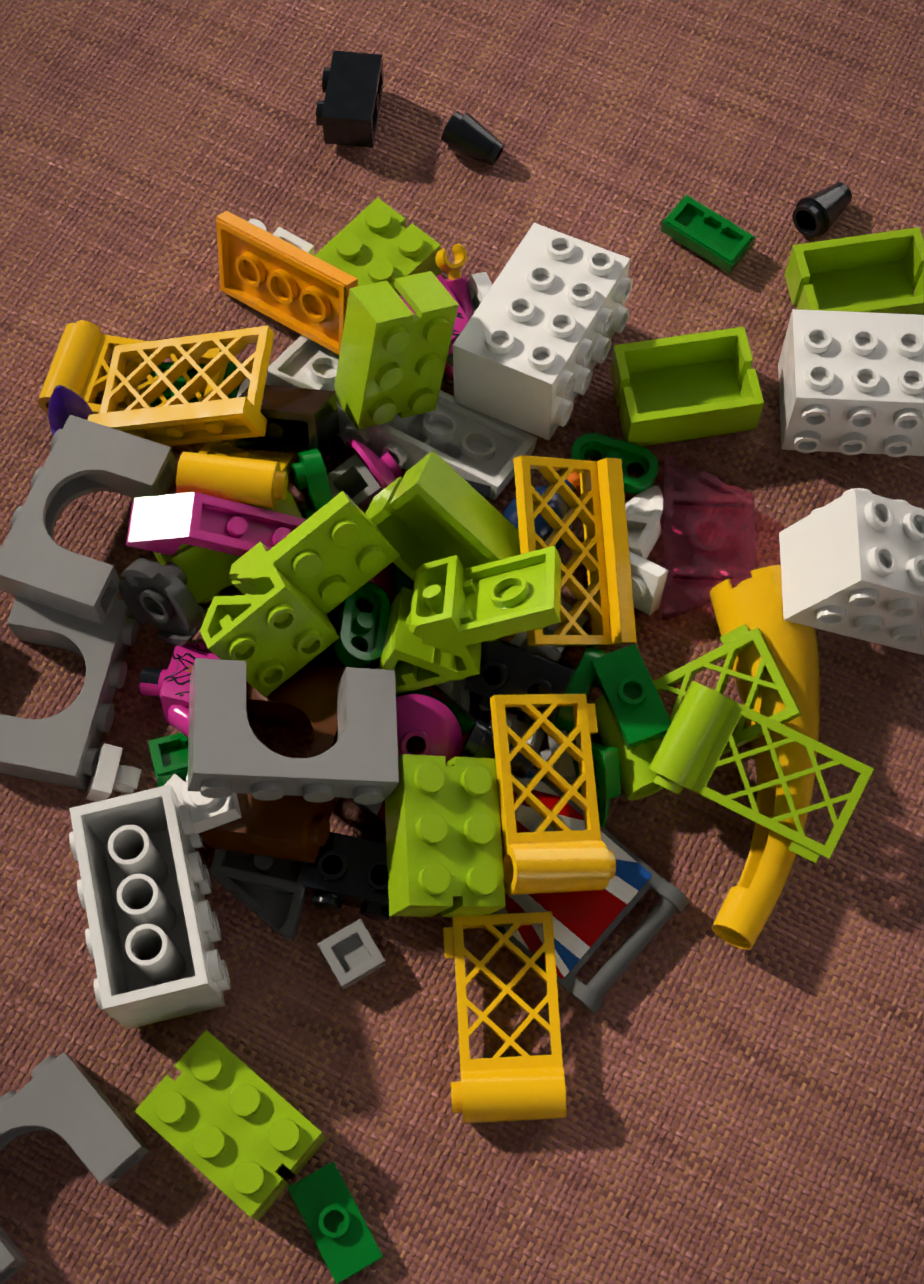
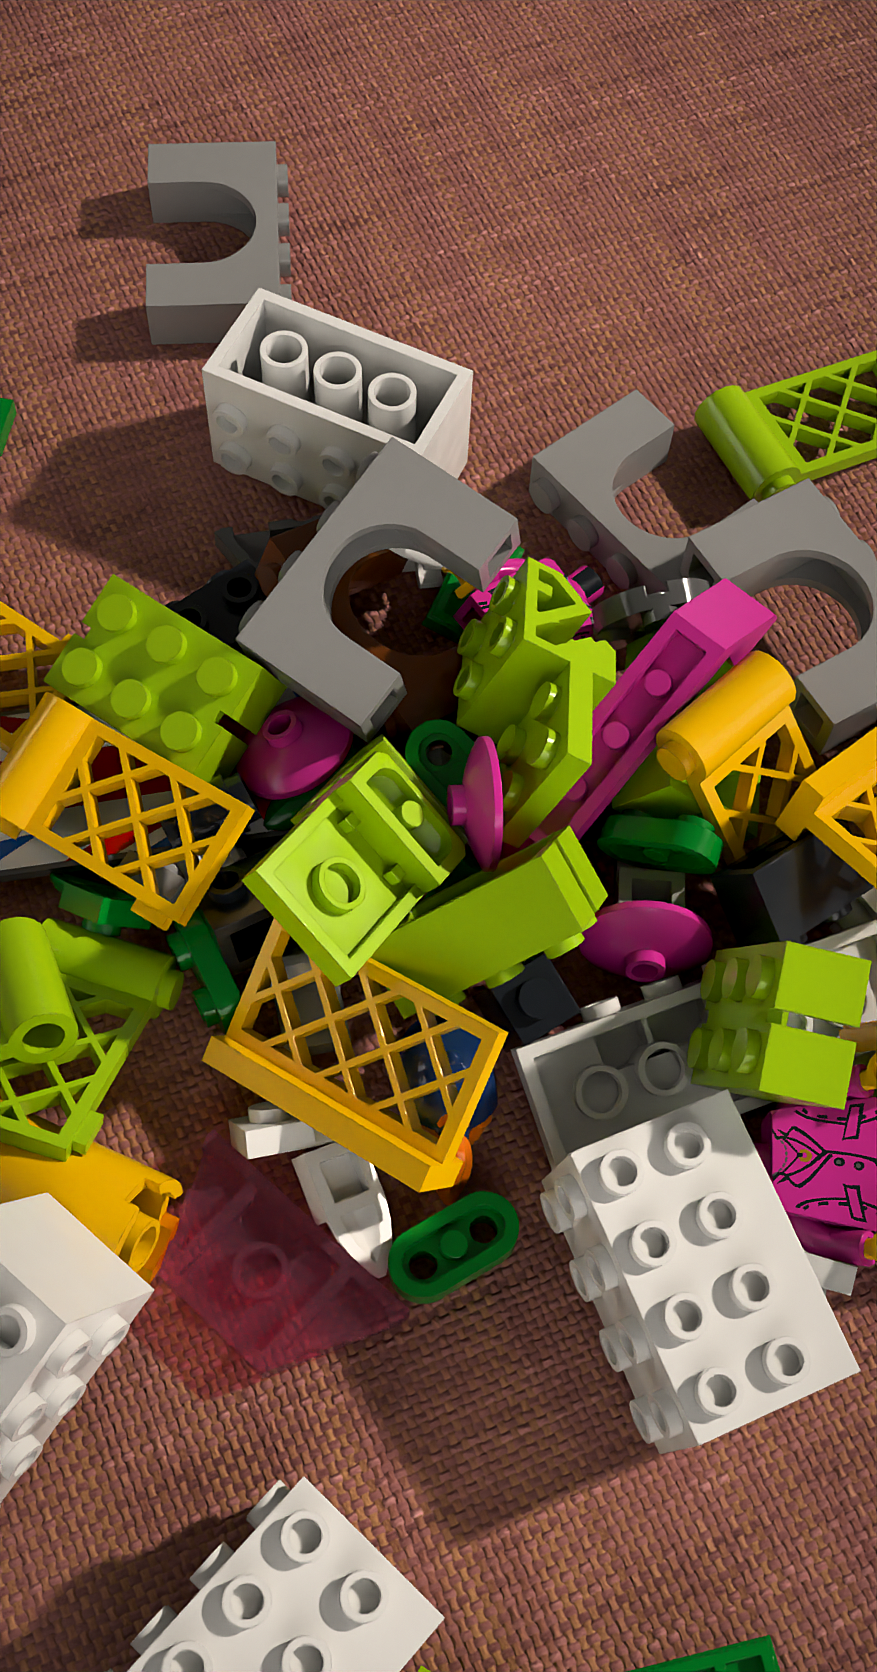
camera: 125 degrees right, 5 degrees down
(111, 775) = (520, 496): white tile -> none
(231, 1125) = (99, 388): lime piece -> none
(351, 954) = (157, 570): light grey plate -> none
(386, 571) = (479, 804): none -> dark pink dish
(631, 696) = (139, 984): green plate -> none
(686, 387) = (473, 1412): lime piece -> none

